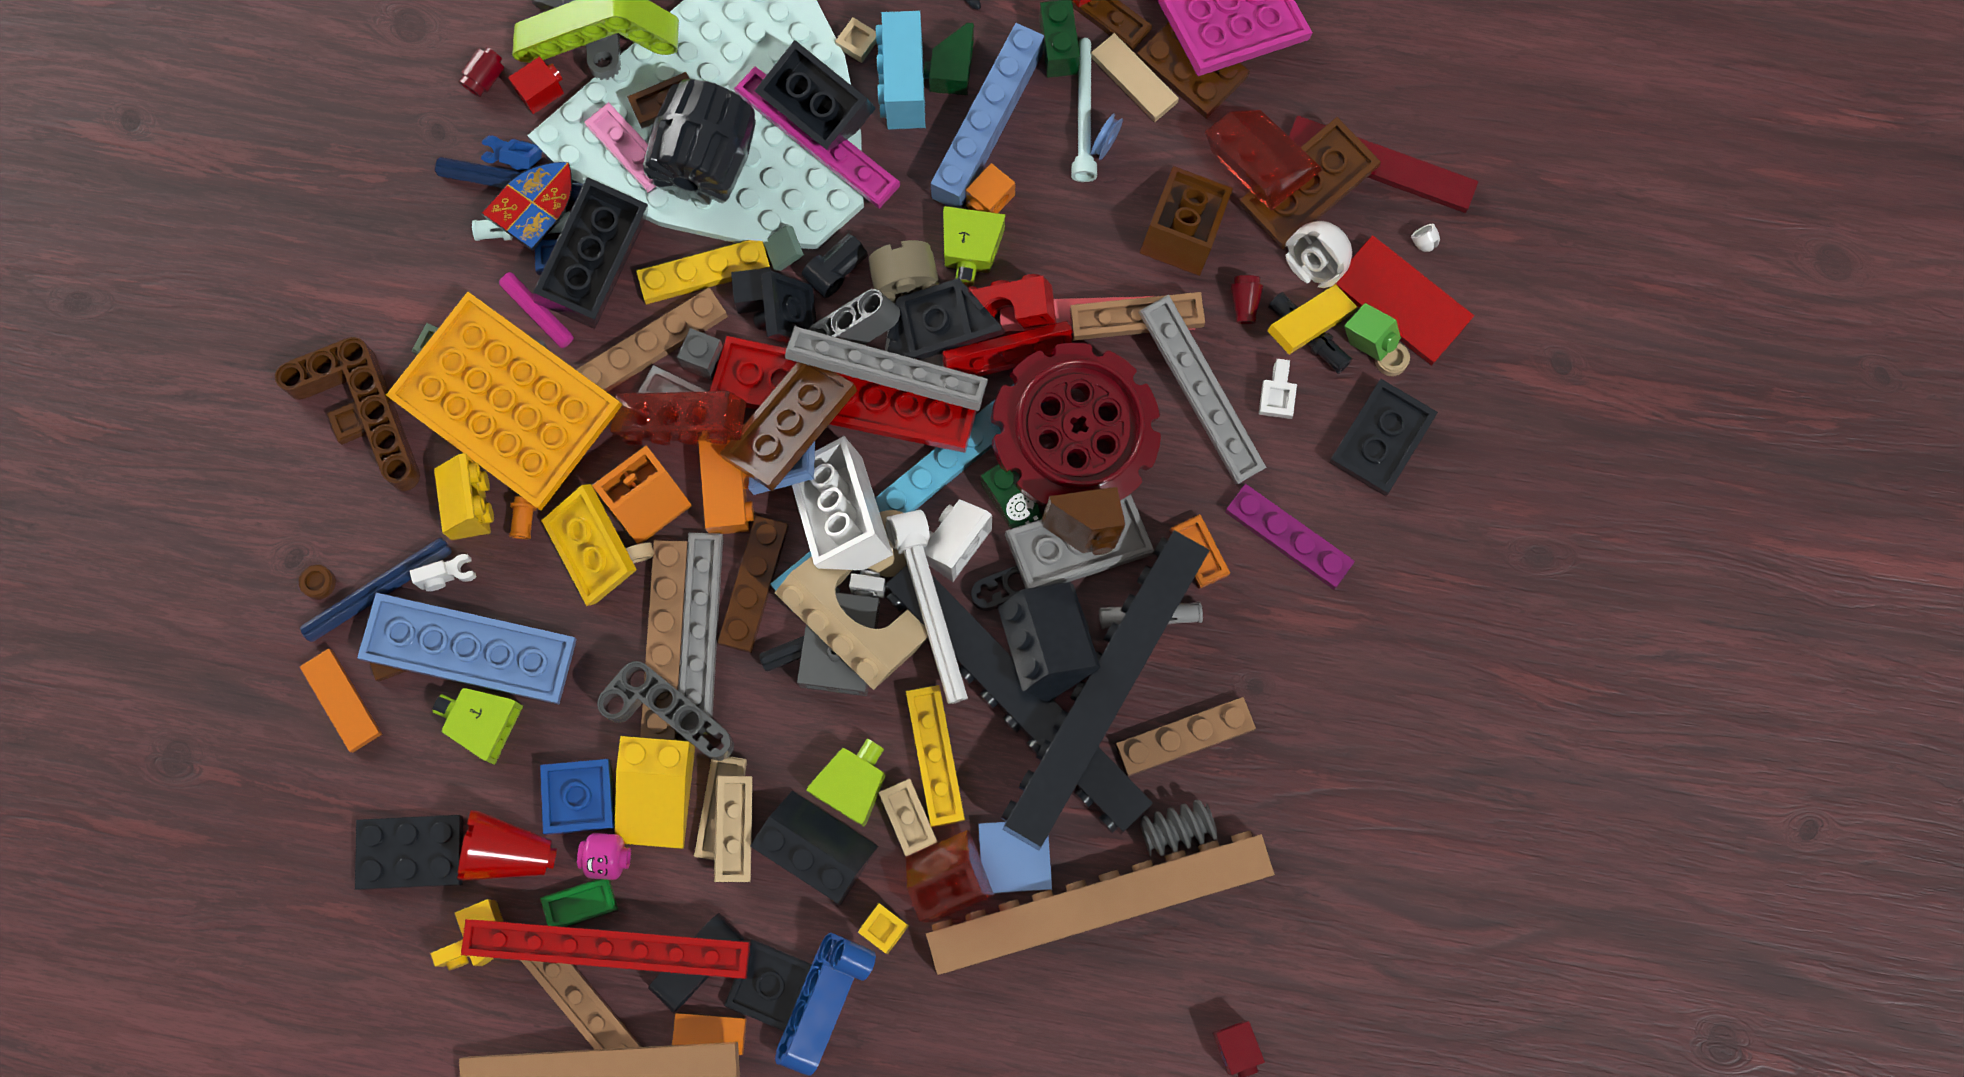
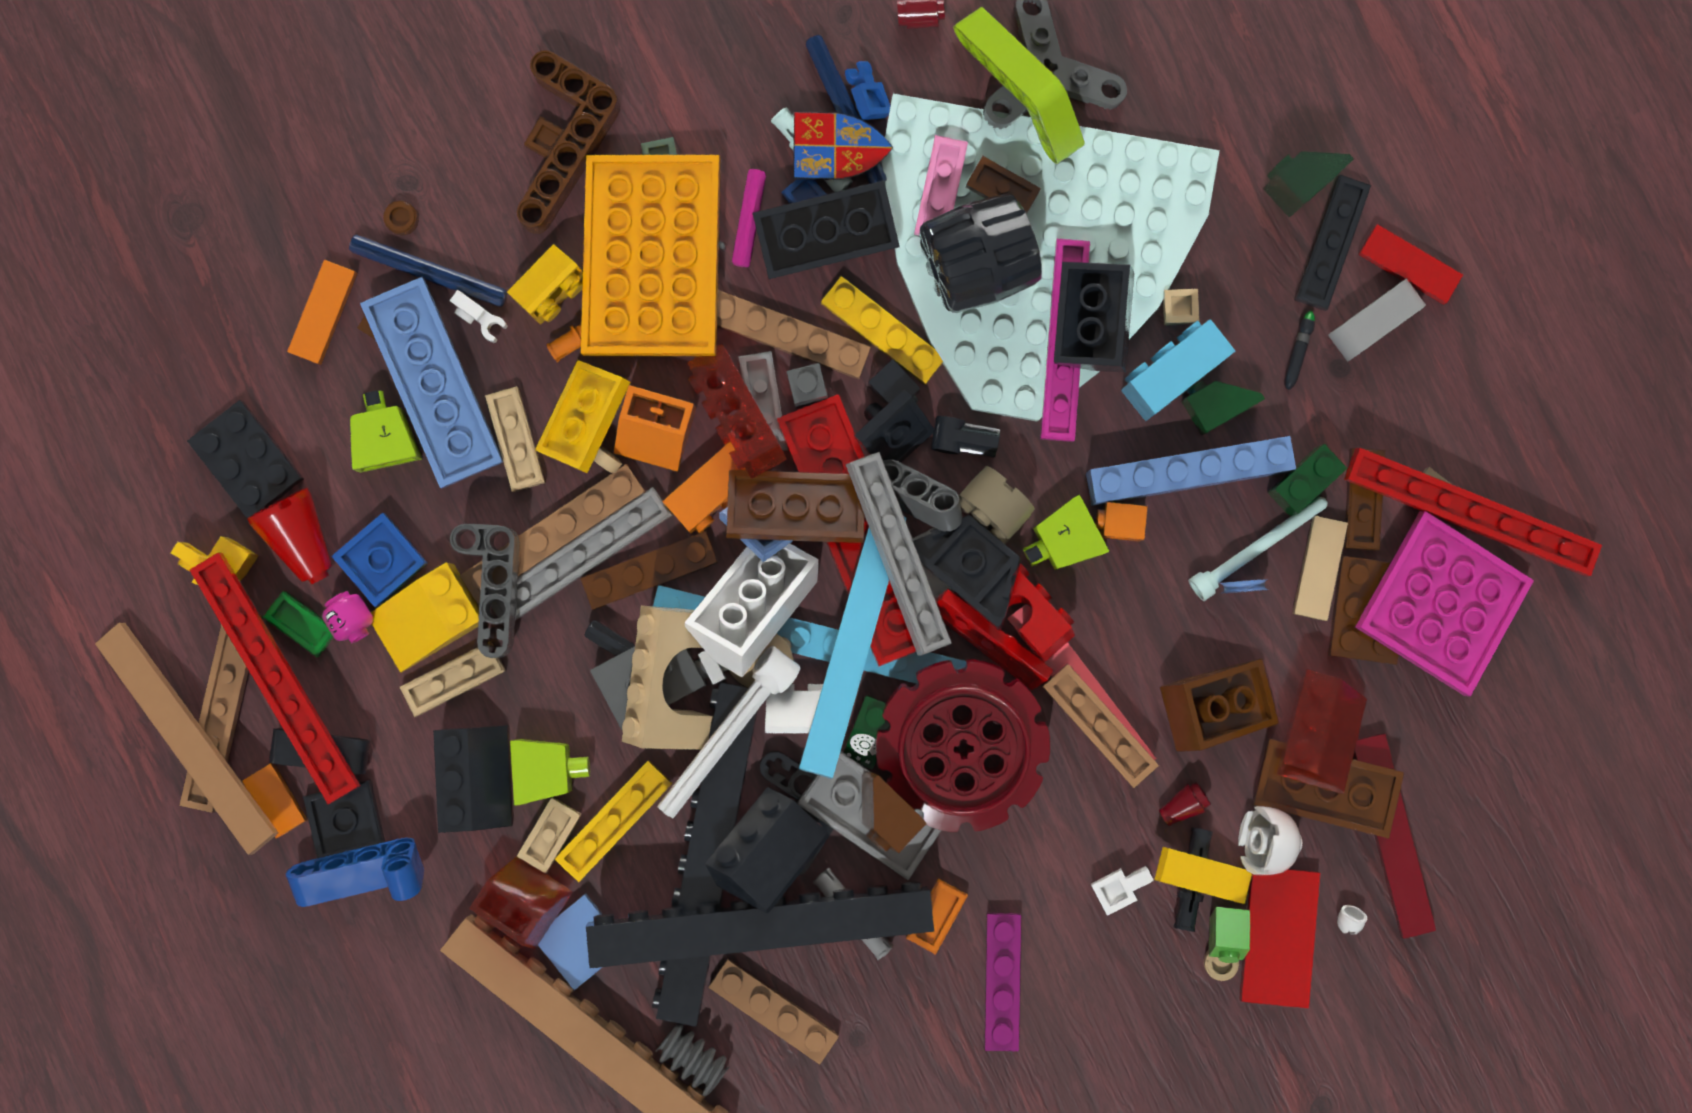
camera: 55 degrees right, 10 degrees up
(537, 84) = (943, 67): red brick -> none
(565, 616) = (515, 439): none -> tan tile
(733, 829) = (439, 704): tan plate -> none
(783, 248) = (949, 383): sand green tile -> none
(883, 928) = (446, 881): yellow brick -> none
(942, 466) = (846, 663): none -> medium azure tile
(1202, 389) = (1075, 824): light grey tile -> none
(1383, 437) = (1144, 1003): black plate -> none

